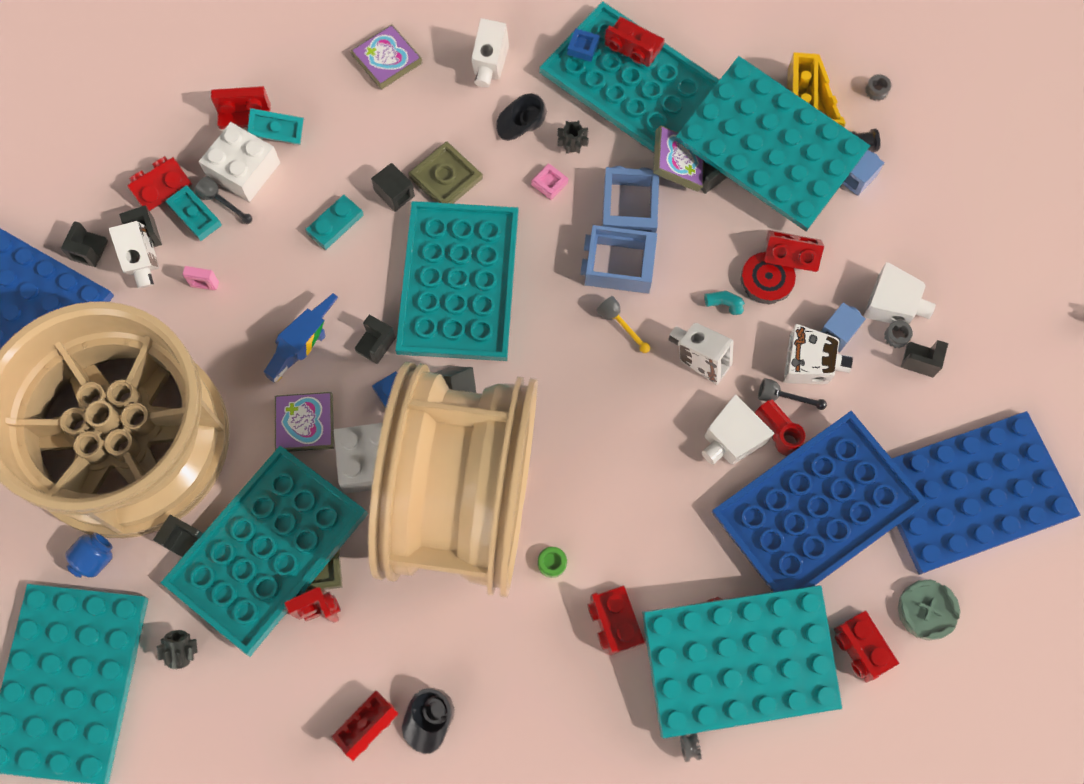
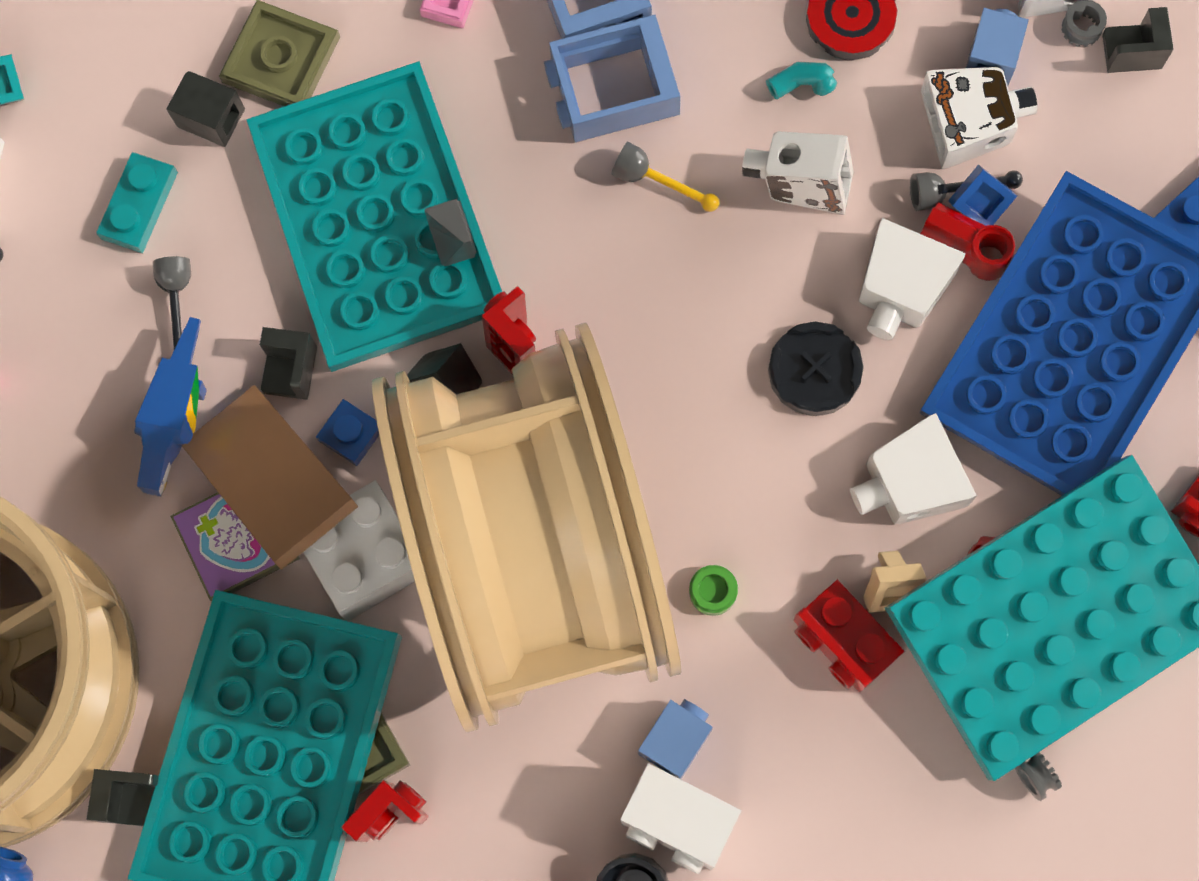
camera: 15 degrees left, 5 degrees up
(335, 268) = (172, 276): none -> dark grey hinge
(335, 396) = (269, 477): none -> medium nougat tile
(475, 681) = (679, 818): none -> white brick
(493, 304) = (450, 232): none -> dark grey slope
(494, 635) = (676, 737): none -> medium blue brick
(501, 365) = (506, 328): none -> red bracket
(653, 598) = (891, 581): none -> tan tile
(663, 463) = (815, 368): none -> black tile
(693, 546) = (915, 476): none -> white torso
(798, 406) = (982, 197): none -> blue plate

